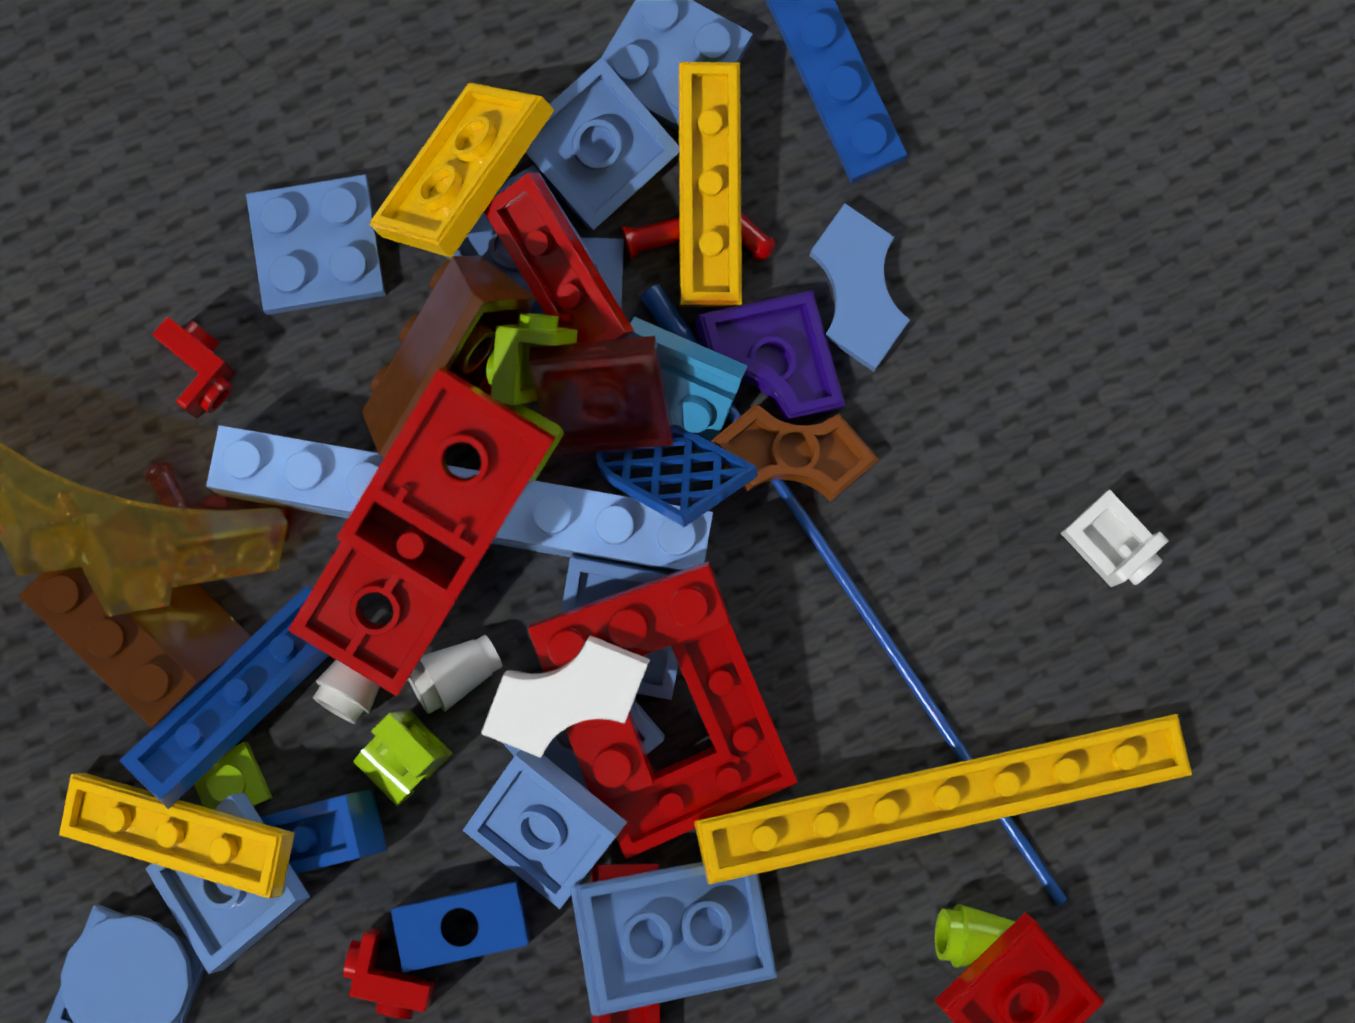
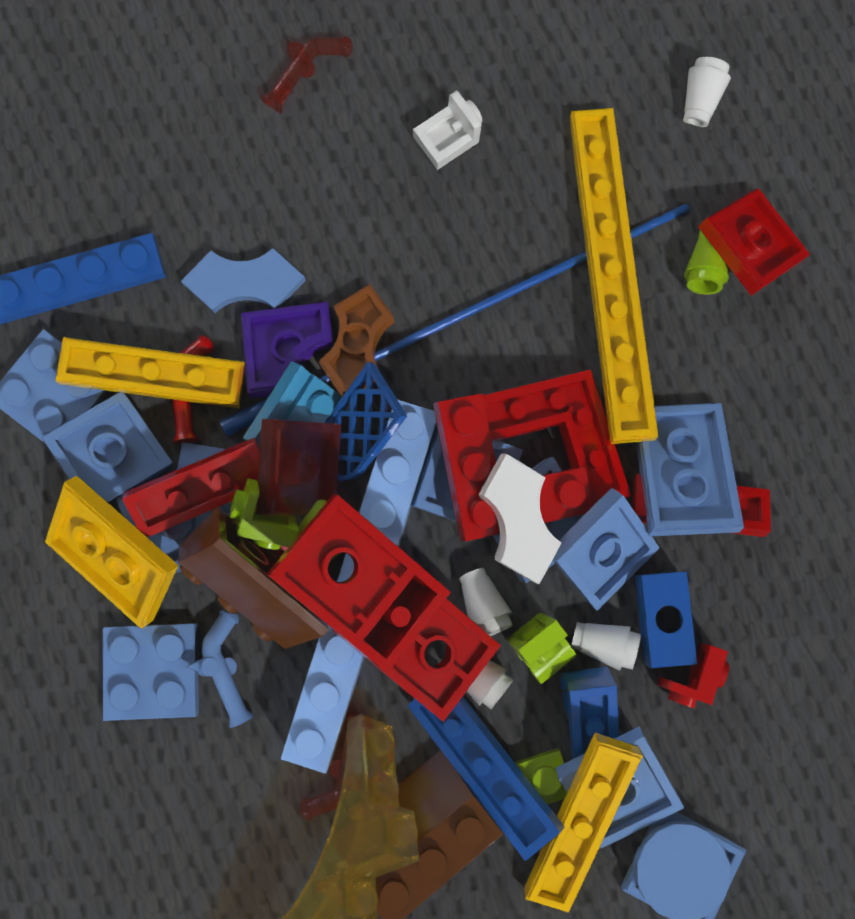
camera: 85 degrees left, 0 degrees up
(196, 349) = (218, 771): red bracket -> none
(328, 336) = (222, 668): none -> medium blue piece
(418, 848) = (607, 643): none -> white cone
(1182, 323) = (302, 66): none -> clear red piece
(1239, 907) = (704, 89): none -> white cone

